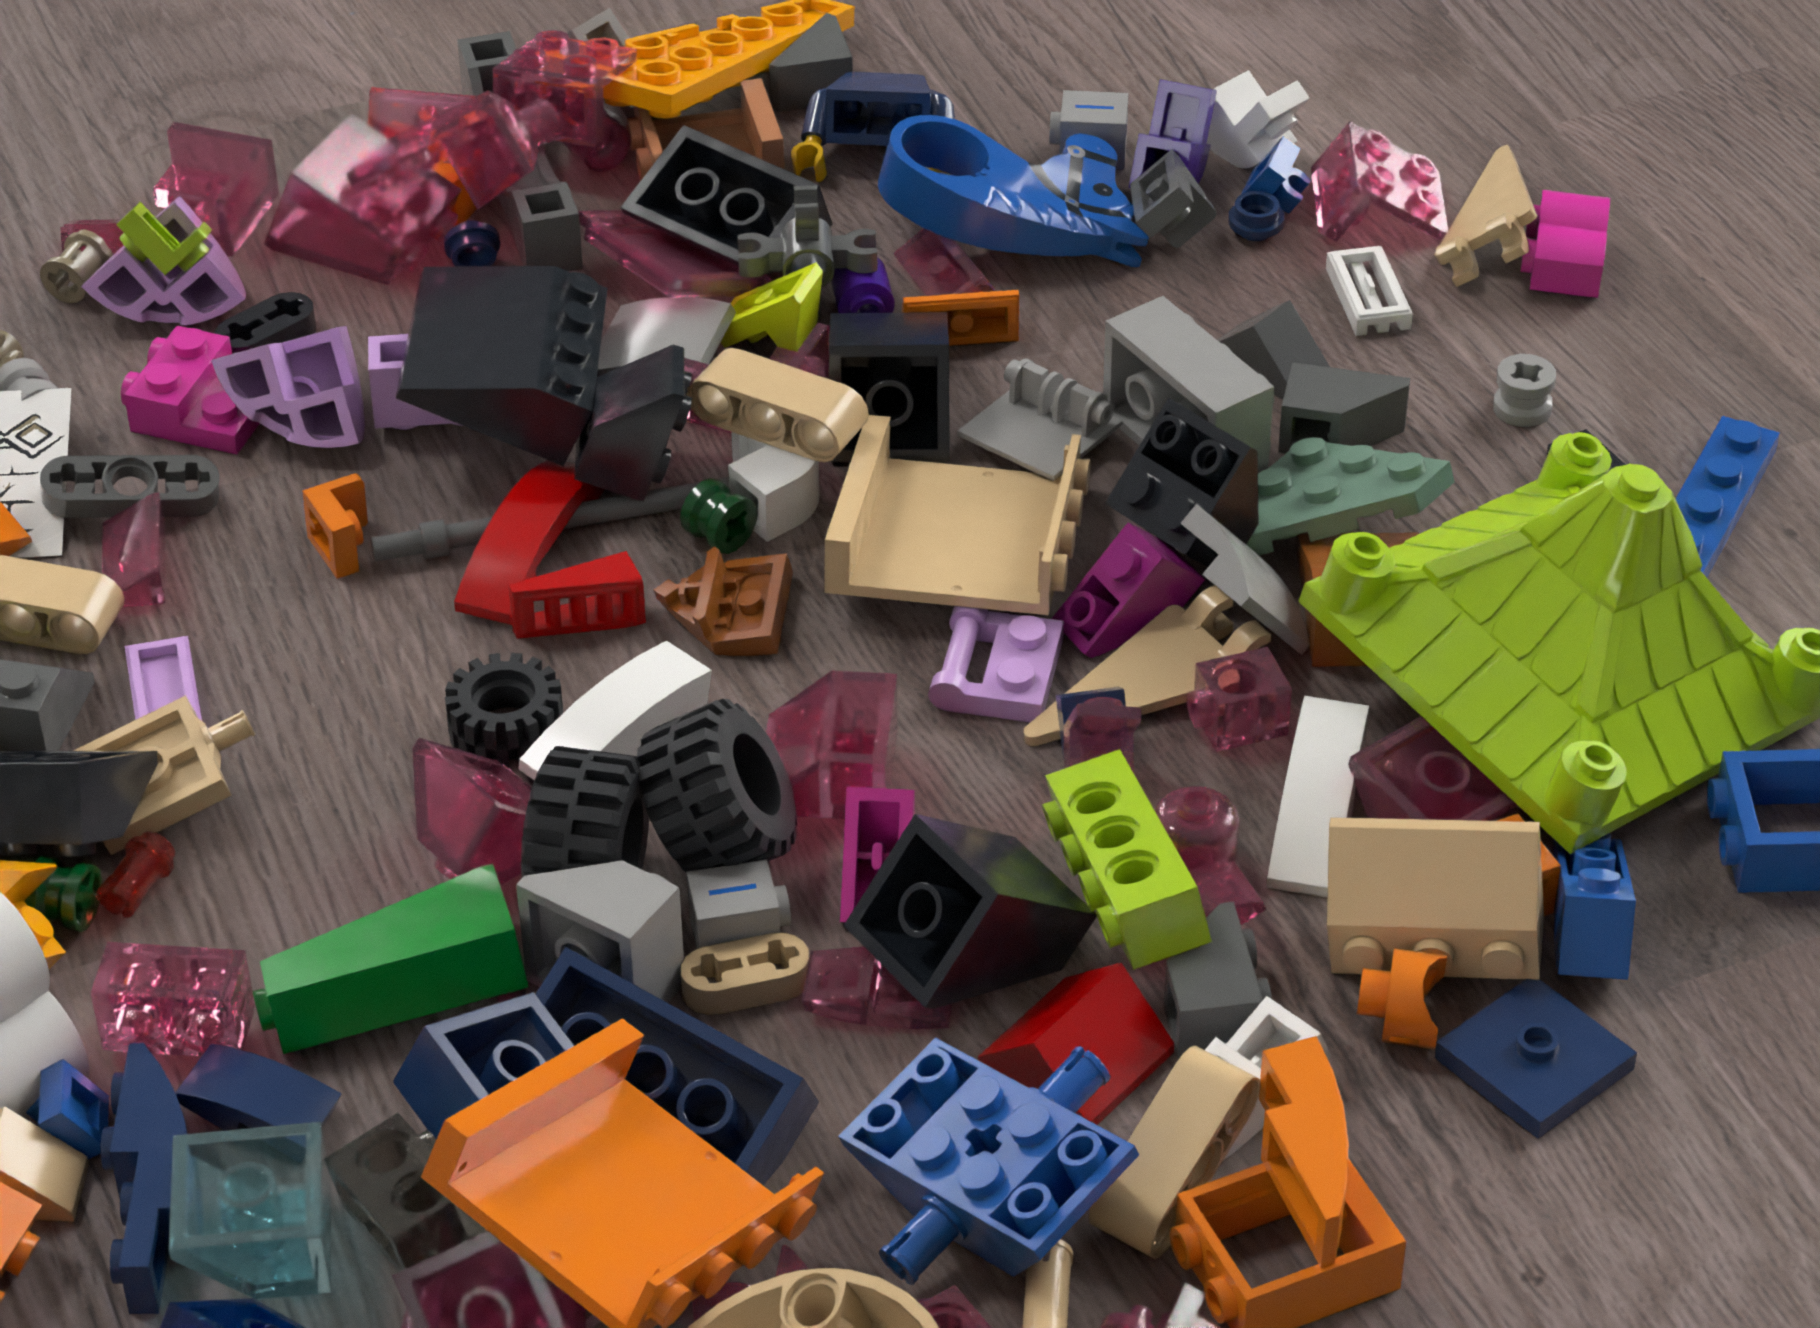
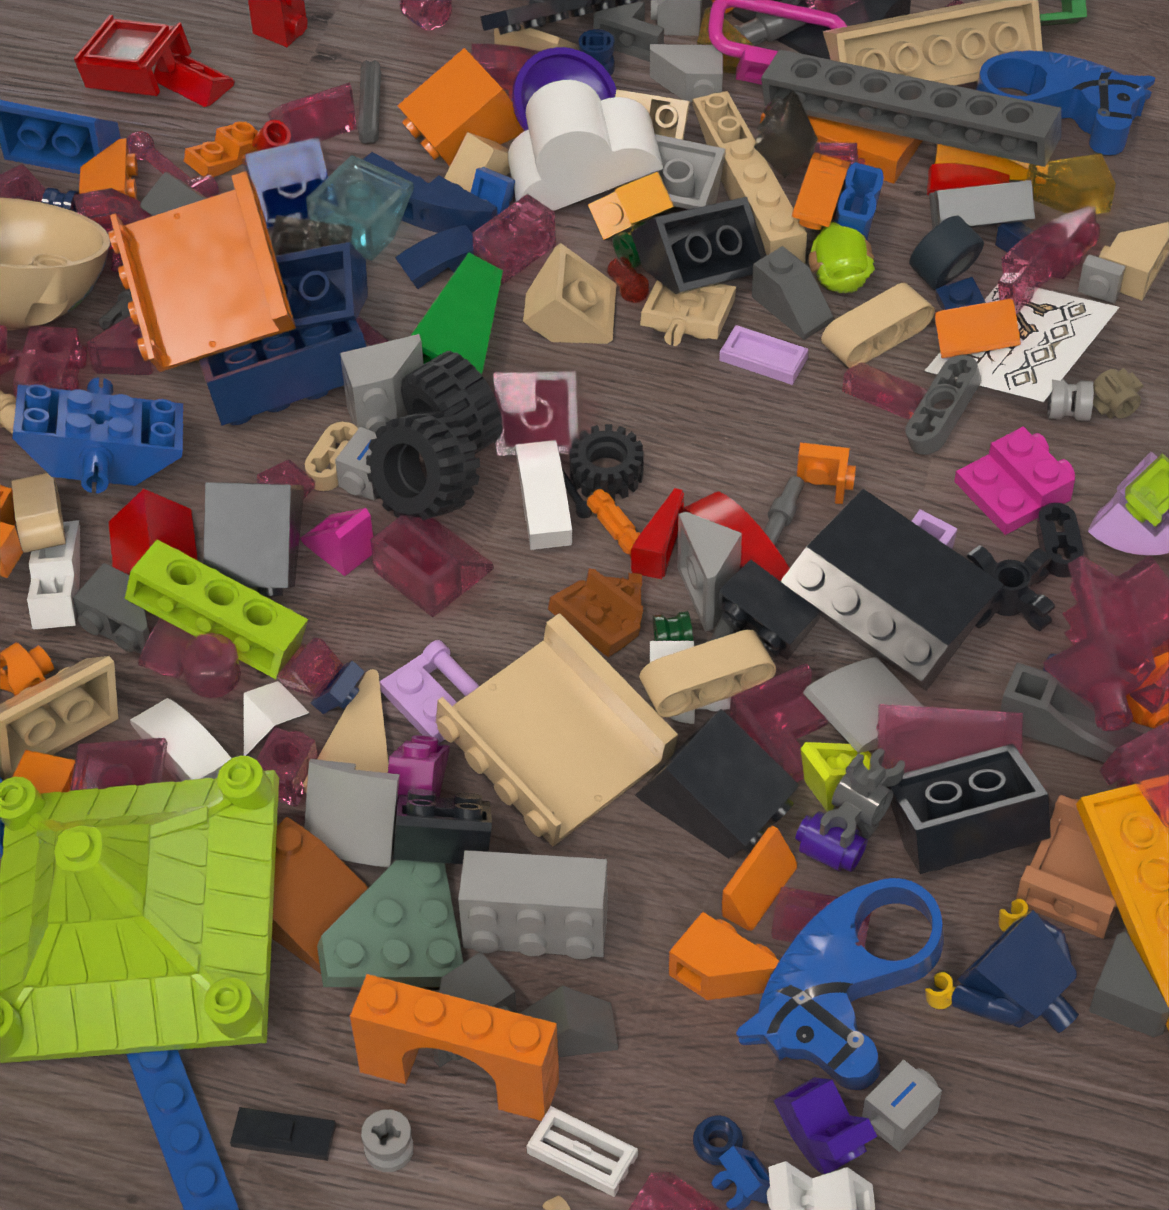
camera: 130 degrees right, 10 degrees up
(253, 892) = (571, 300): none -> tan slope
(299, 388) = (975, 501): lavender brick -> none
(380, 310) = (1017, 578): none -> black pin
(592, 655) = (613, 519): none -> orange axle
(619, 493) = (706, 561): none -> light grey slope
(1039, 417) = (623, 838): light grey hinge -> none
(1080, 287) = (720, 961): none -> orange slope
(1170, 201) = (771, 1069): dark grey slope -> none
(1186, 769) = (265, 709): none -> white sticker
(1385, 309) = (514, 1048): none -> orange arch

